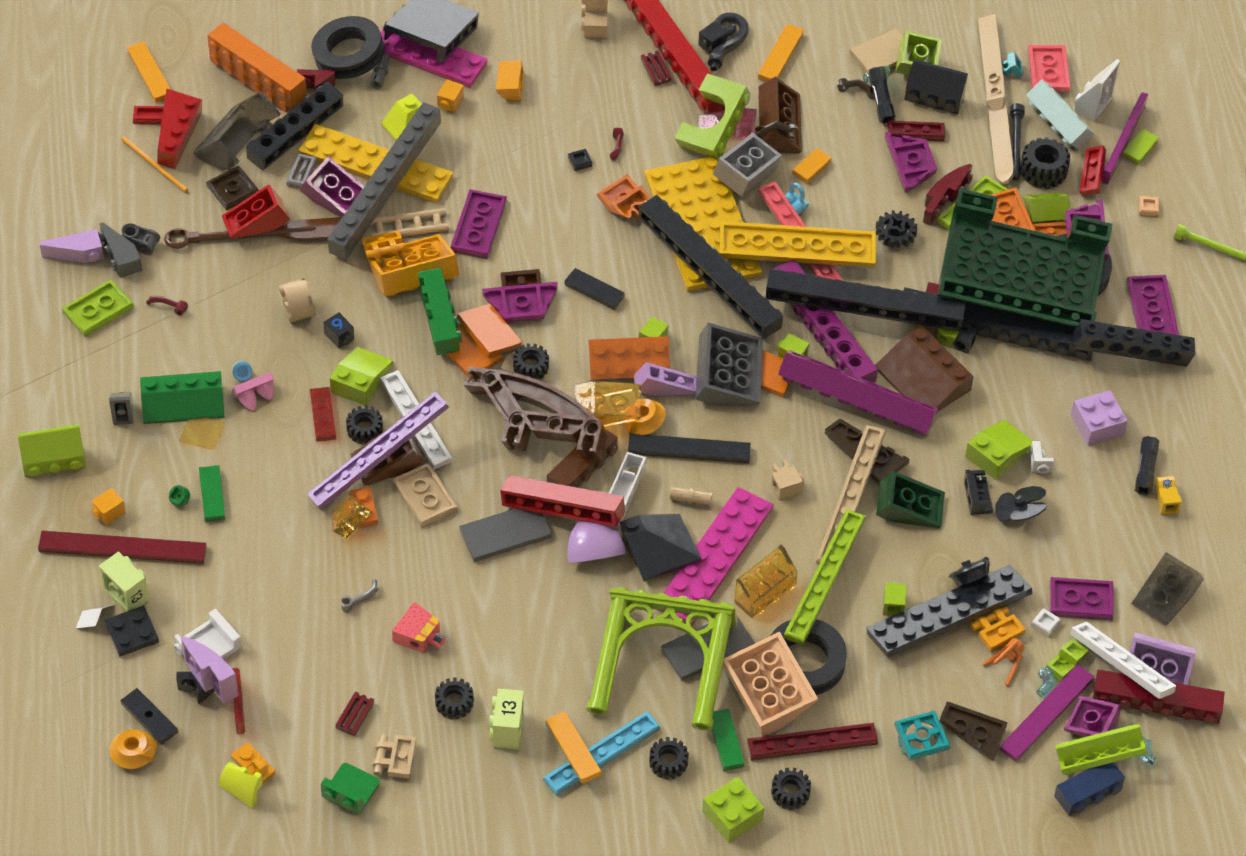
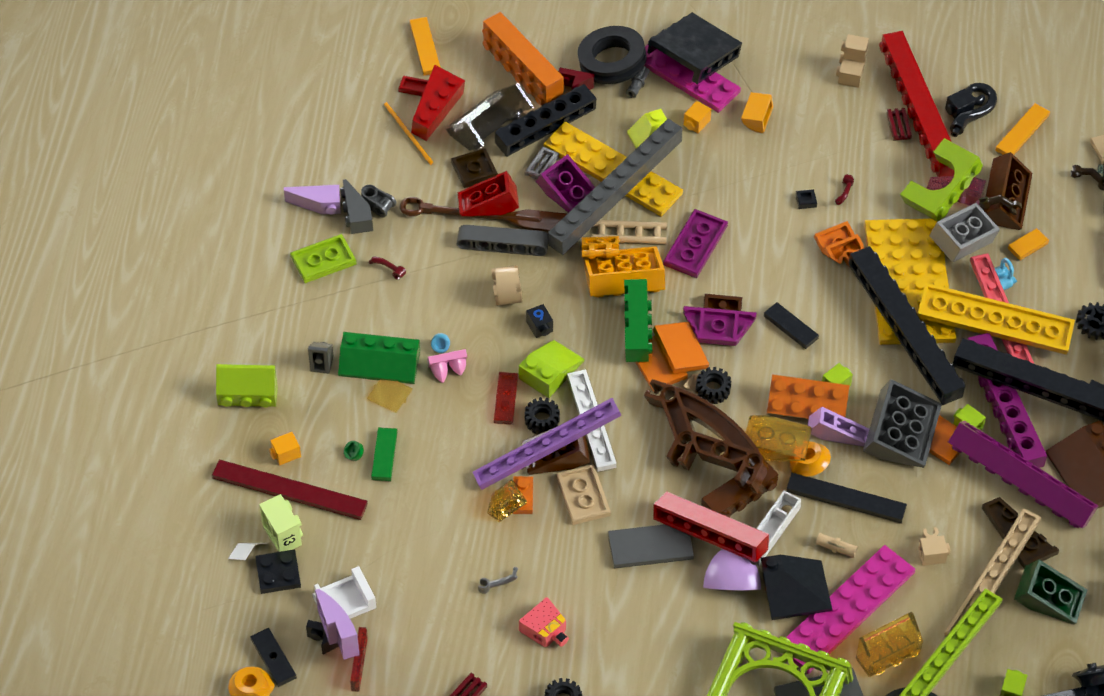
camera: 15 degrees right, 0 degrees up
(280, 255) = (502, 240): none -> dark grey beam

